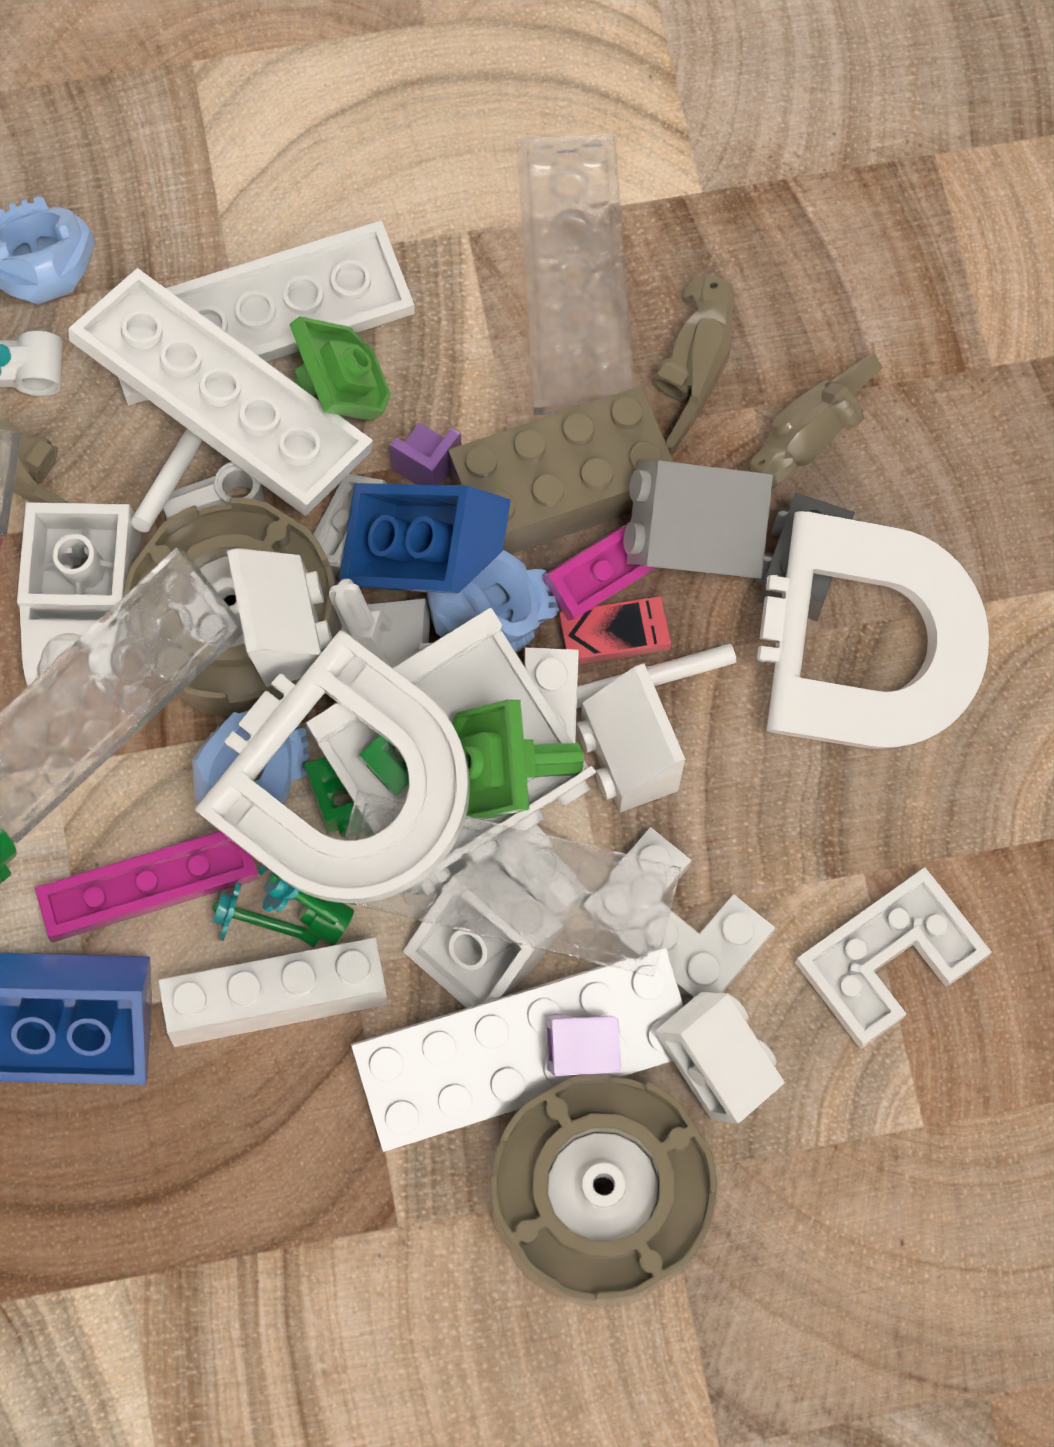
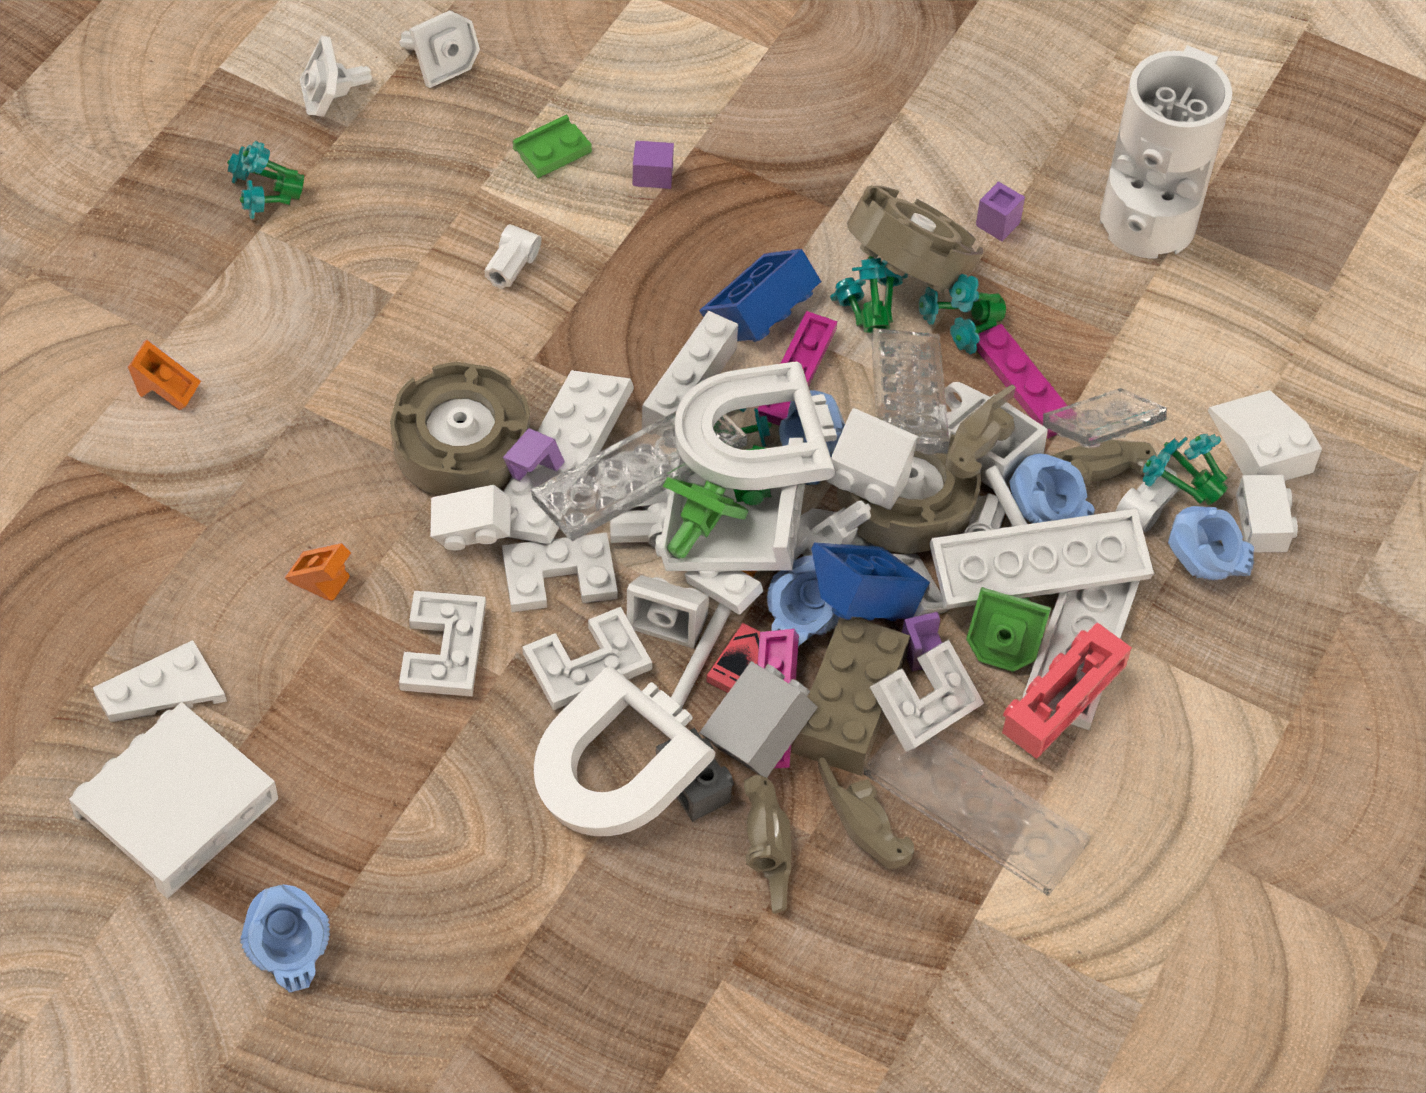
camera: 130 degrees right, 15 degrees down
(106, 454) = (1049, 489): none -> light blue helmet
(113, 549) = (980, 434): none -> dark tan animal
(248, 1392) = (514, 250): none -> white piece
(373, 253) = (1035, 730): none -> coral brick
(544, 372) = (920, 719): none -> white plate
(805, 775) = (566, 679): none -> white plate
(935, 1182) = (321, 571): none -> orange slope

